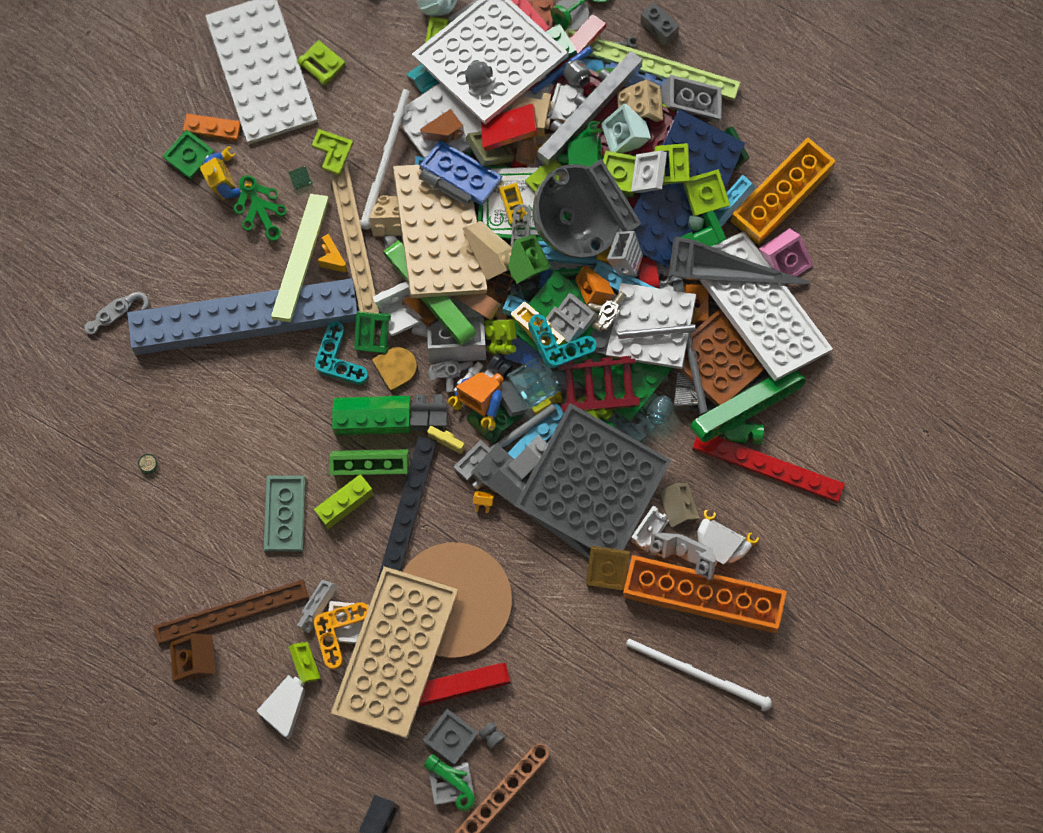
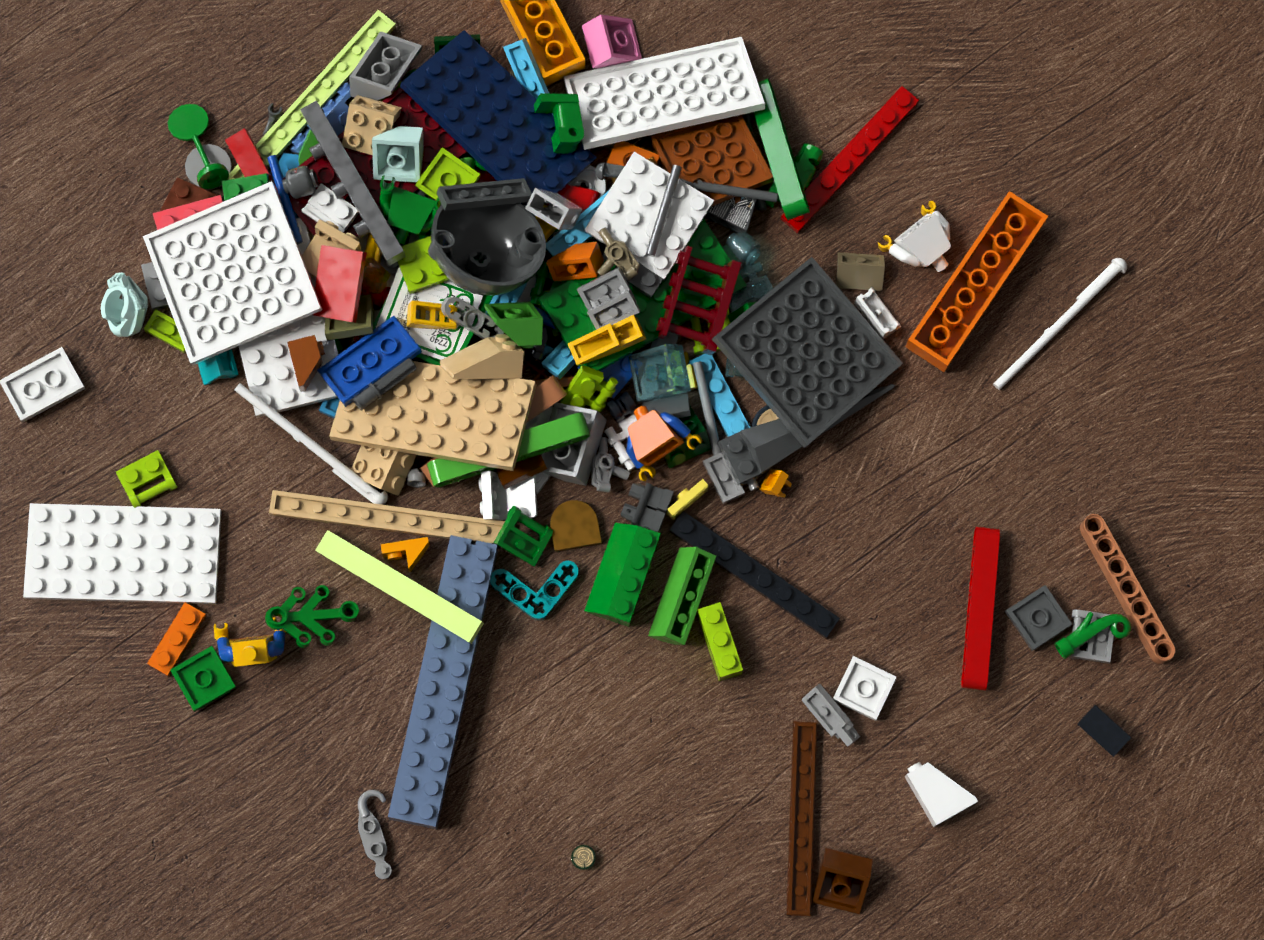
camera: 80 degrees left, 5 degrees up
(284, 514) = (704, 716): sand green tile -> none
(300, 178) = (287, 556): clear green tile -> none
(304, 662) = (894, 752): lime plate -> none
(333, 624) = (864, 702): light orange beam -> none
(337, 149) = (272, 496): lime plate -> none
(395, 652) = (924, 642): tan plate -> none
(478, 74) = (259, 291): dark grey head -> none
(482, 599) = (879, 560): medium nougat tile -> none
(492, 735) = (1053, 571): dark grey wheel -> none
(527, 458) = (750, 410): light grey slope -> none
(553, 348) = (643, 329): teal beam -> none
(607, 567) = (908, 374): pearl gold plate -> none
(649, 171) = (469, 143): white plate -> none
(659, 24) = (266, 70): dark grey brick -> none
(678, 163) = (473, 107): lime plate -> none
(682, 546) = (902, 301): light grey slope -> none
(695, 223) = (544, 120): sand green hinge -> none
(701, 262) = (599, 129): dark grey plate -> none
(706, 193) = (513, 94): lime plate -> none

